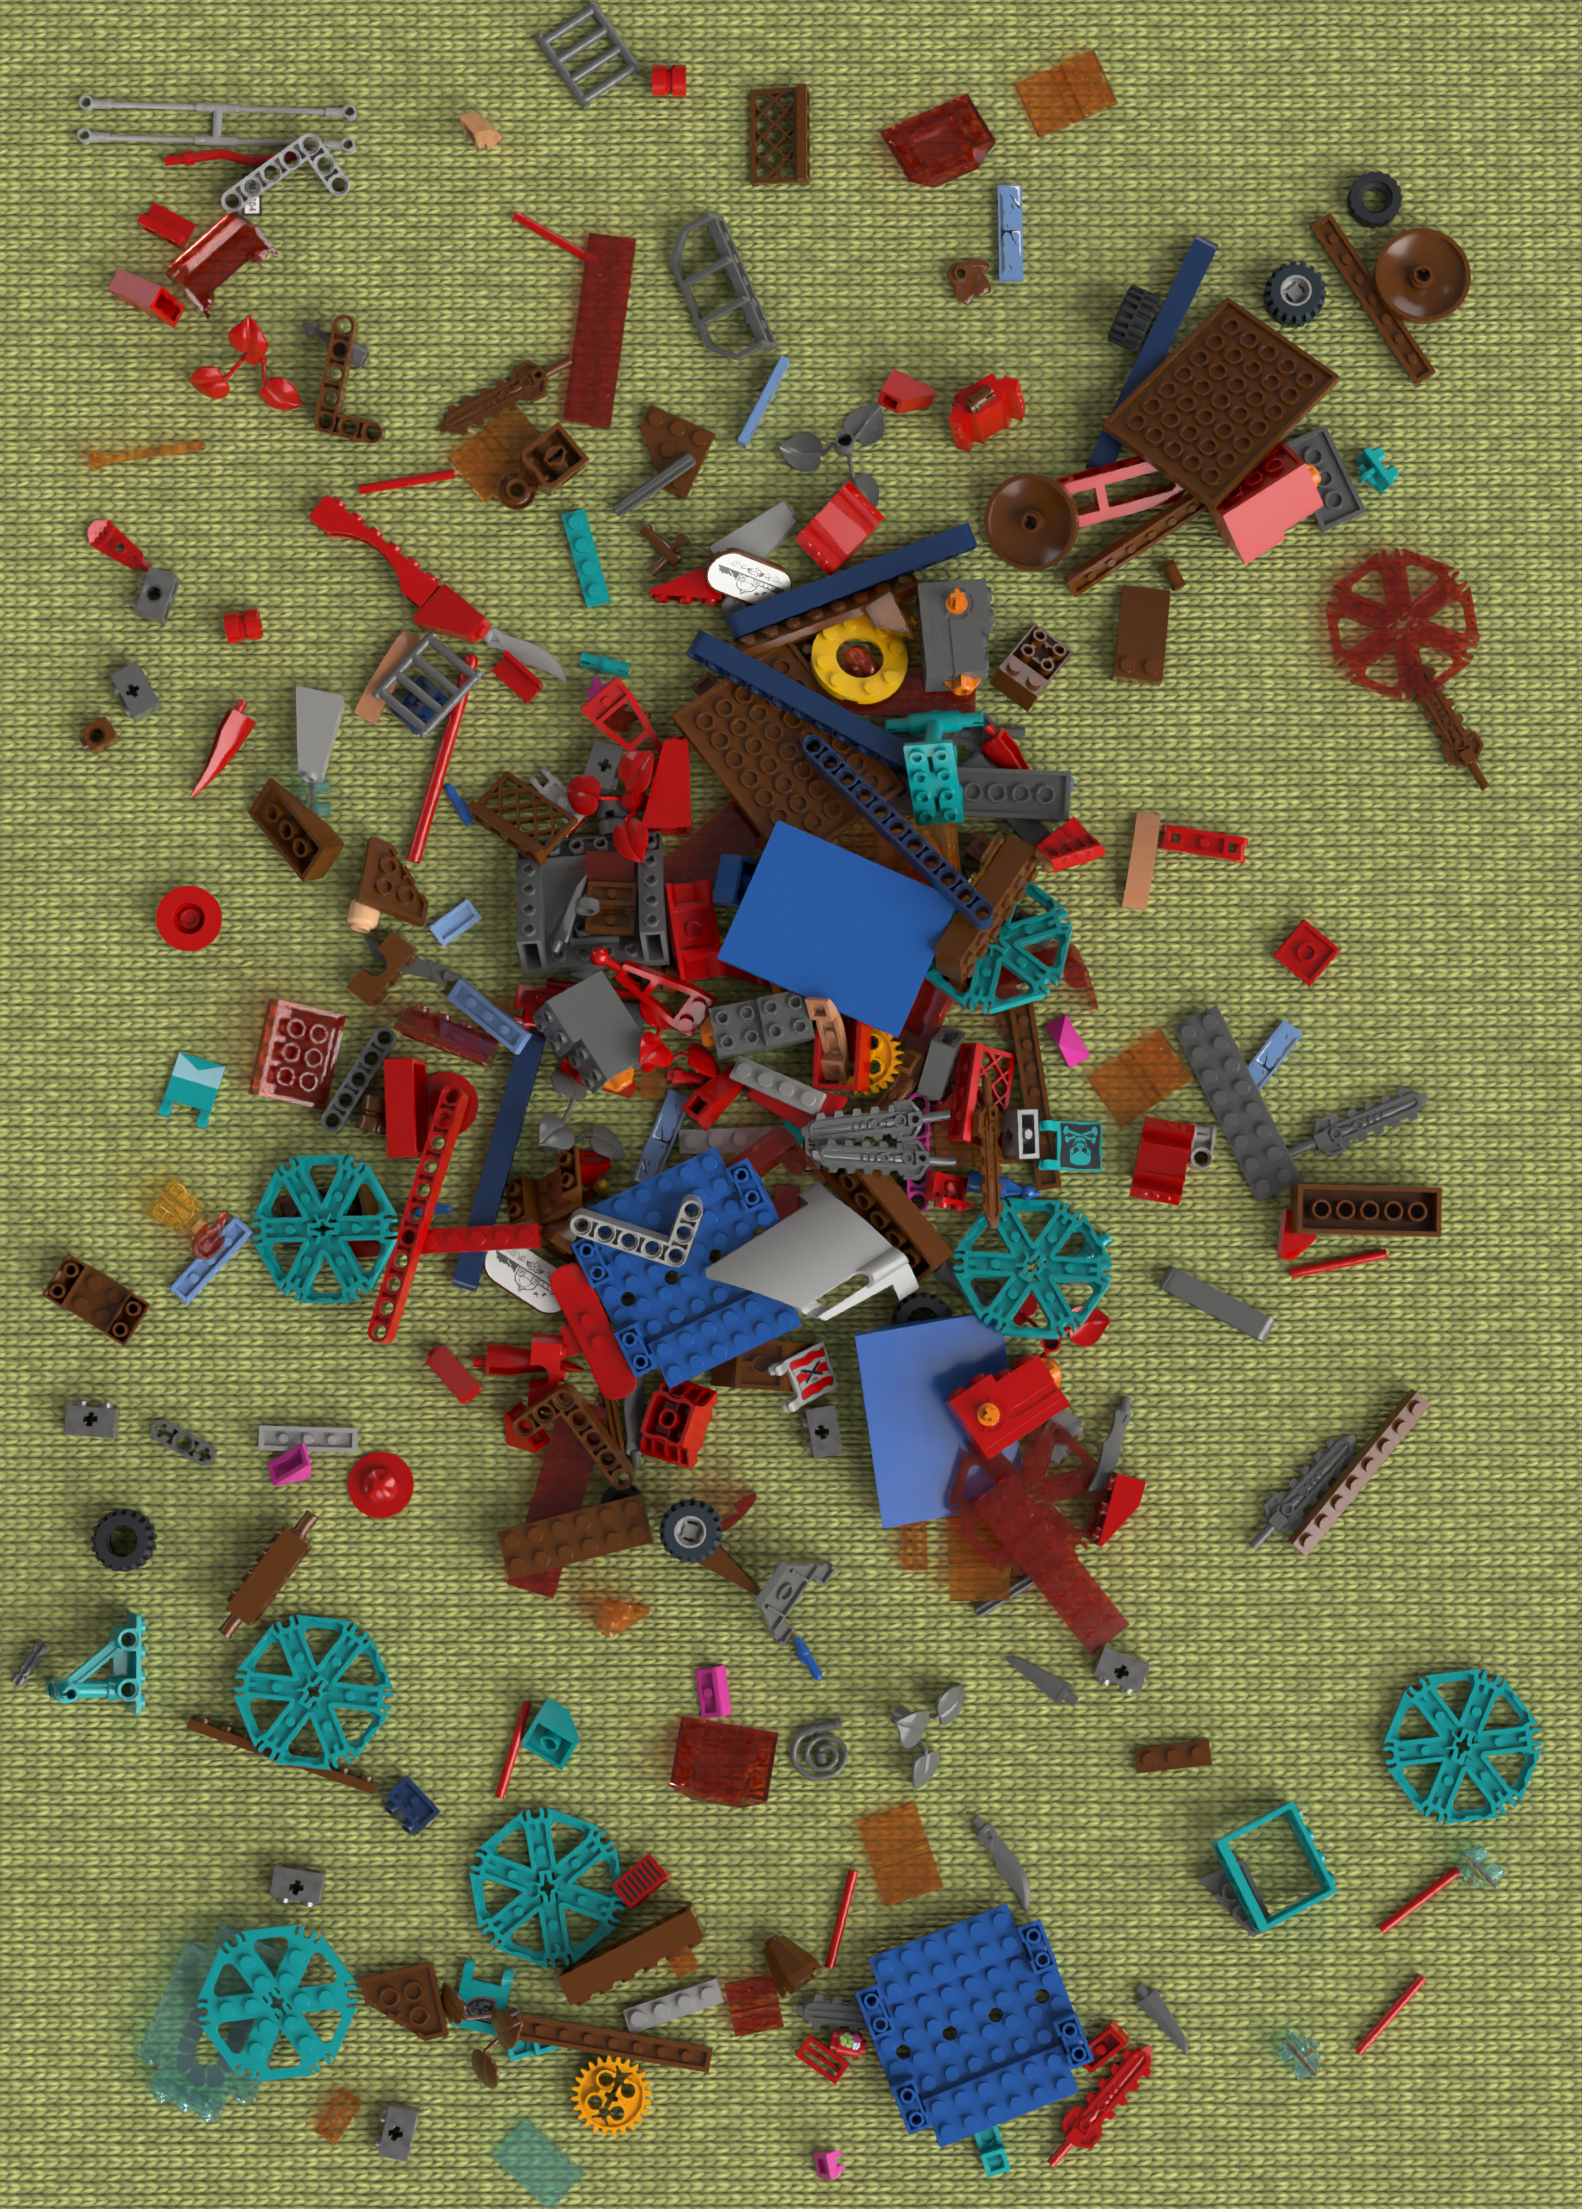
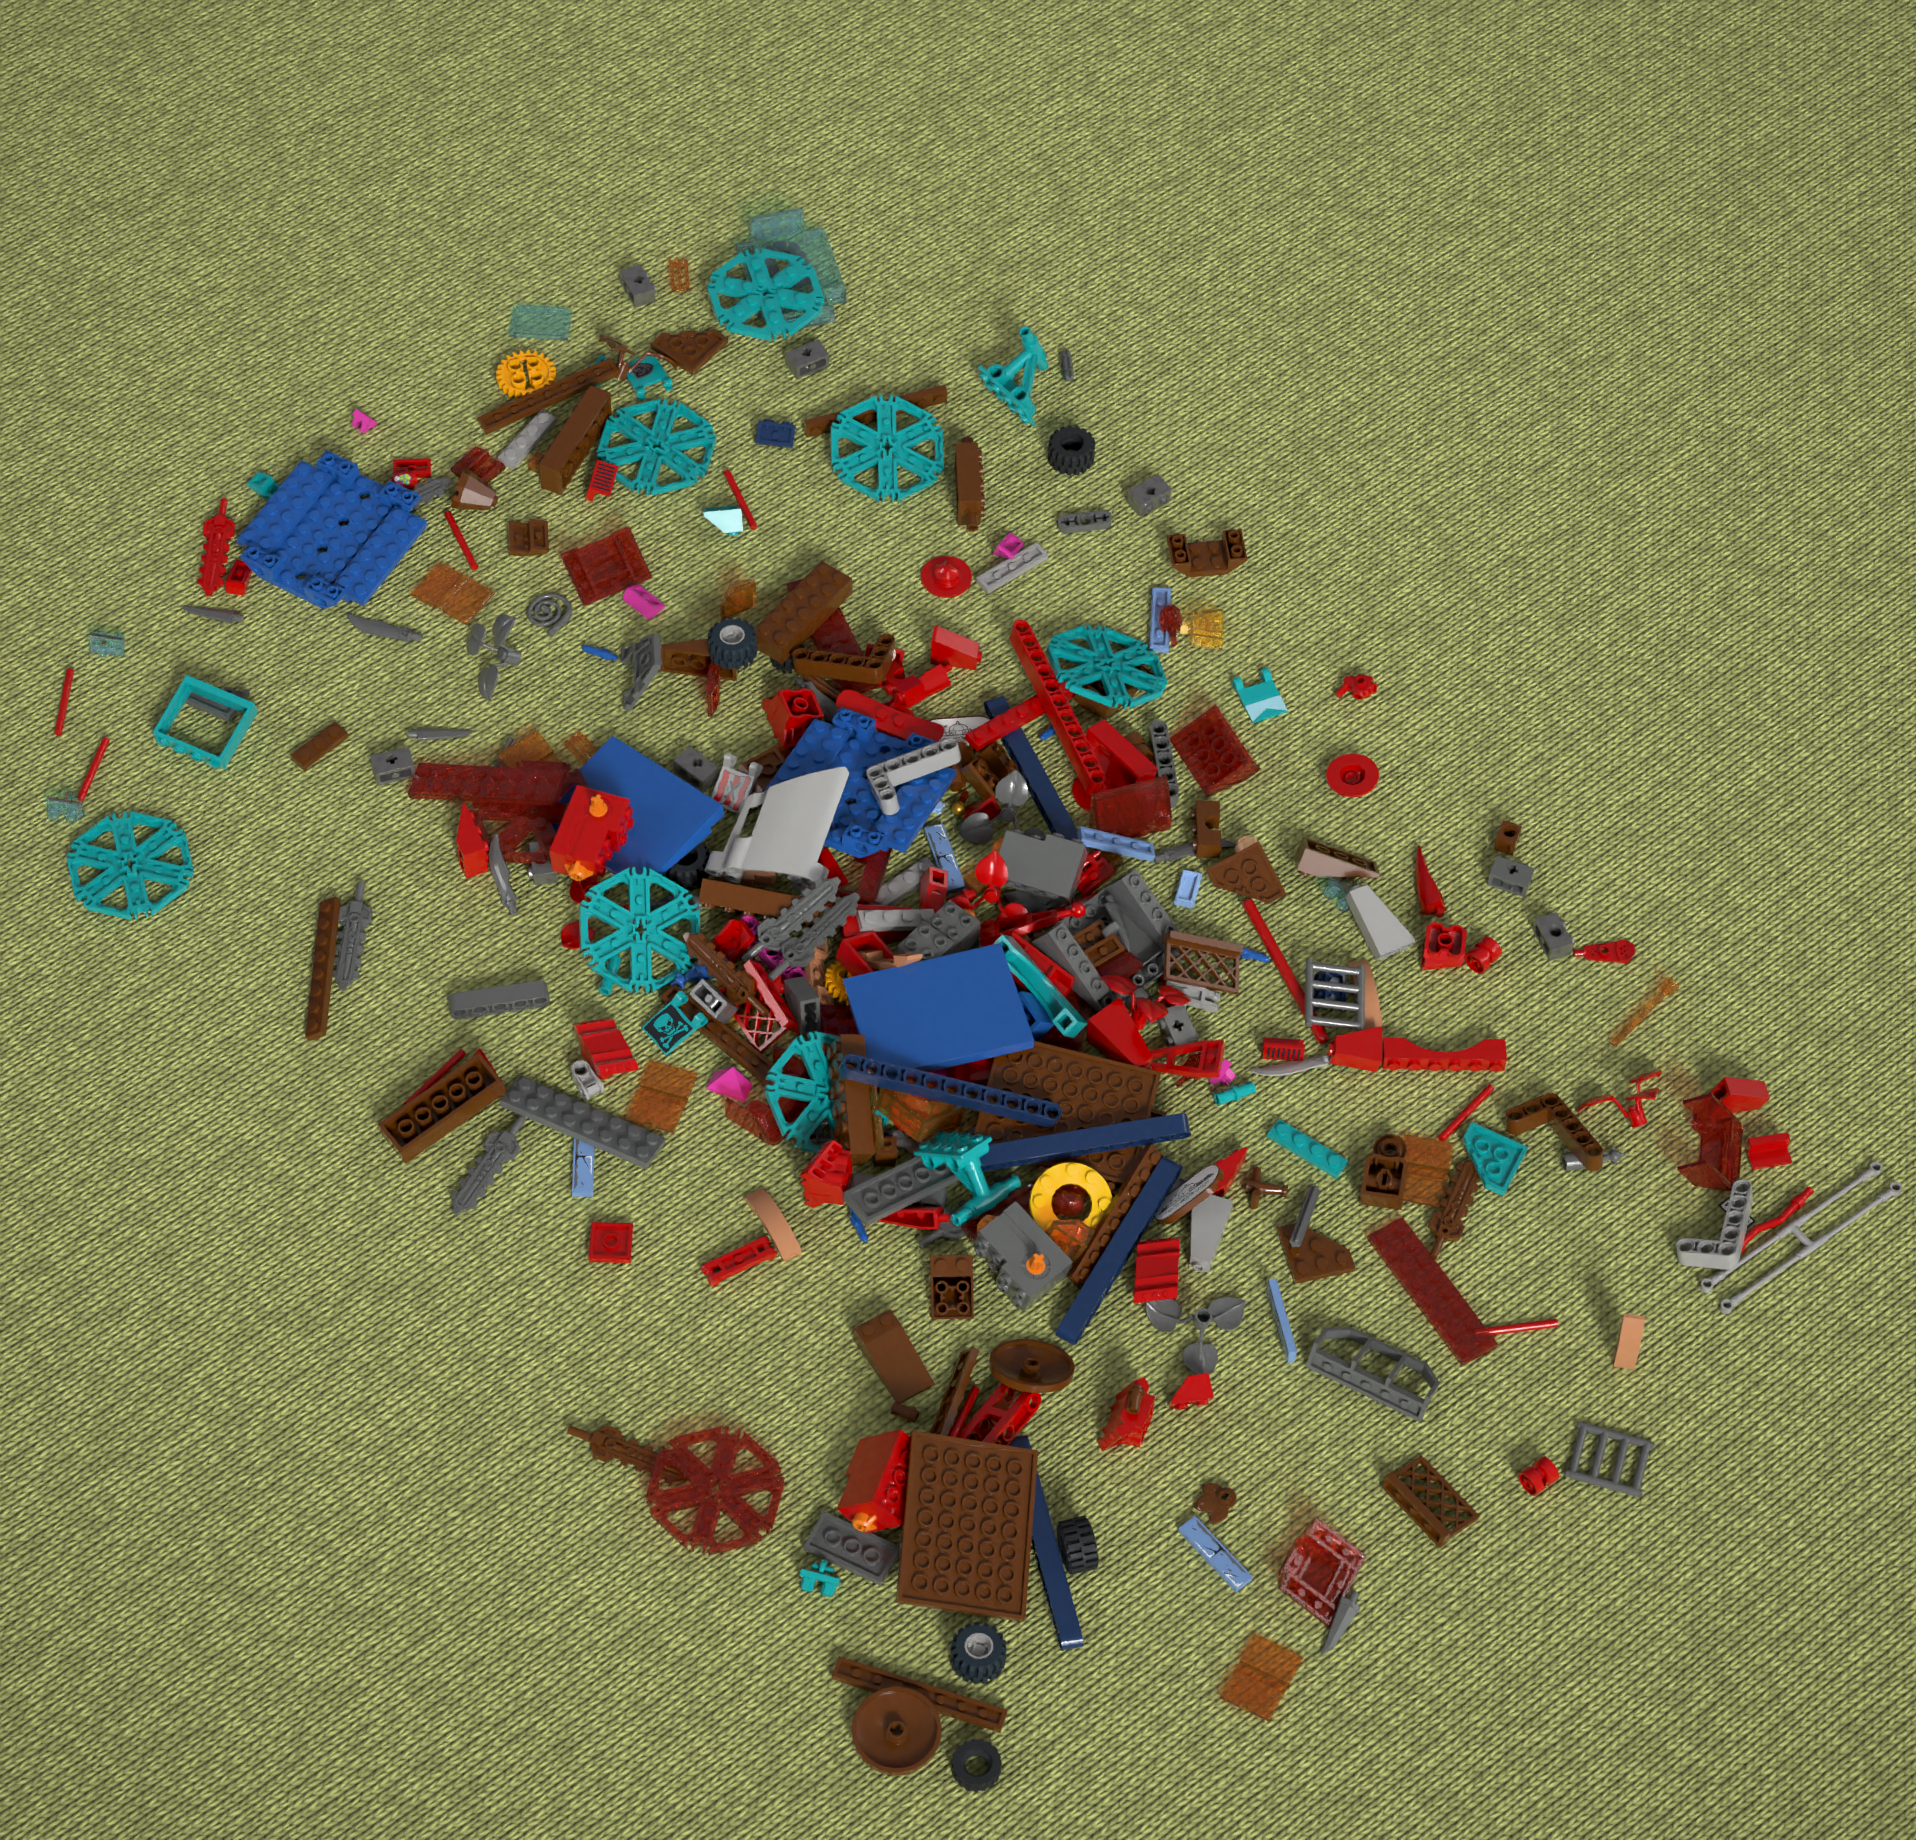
camera: 140 degrees right, 30 degrees down
(85, 1019) = (1360, 685): none -> red piece
(275, 659) = (1443, 946): none -> red piece
(425, 412) = (1493, 1157): none -> teal plate
(709, 851) = (1056, 1005): none -> teal arch
(770, 1867) = (528, 538): none -> reddish brown slope
(949, 92) = (1344, 1615): none -> dark grey bar
(1131, 524) = (964, 1412): none -> red bar

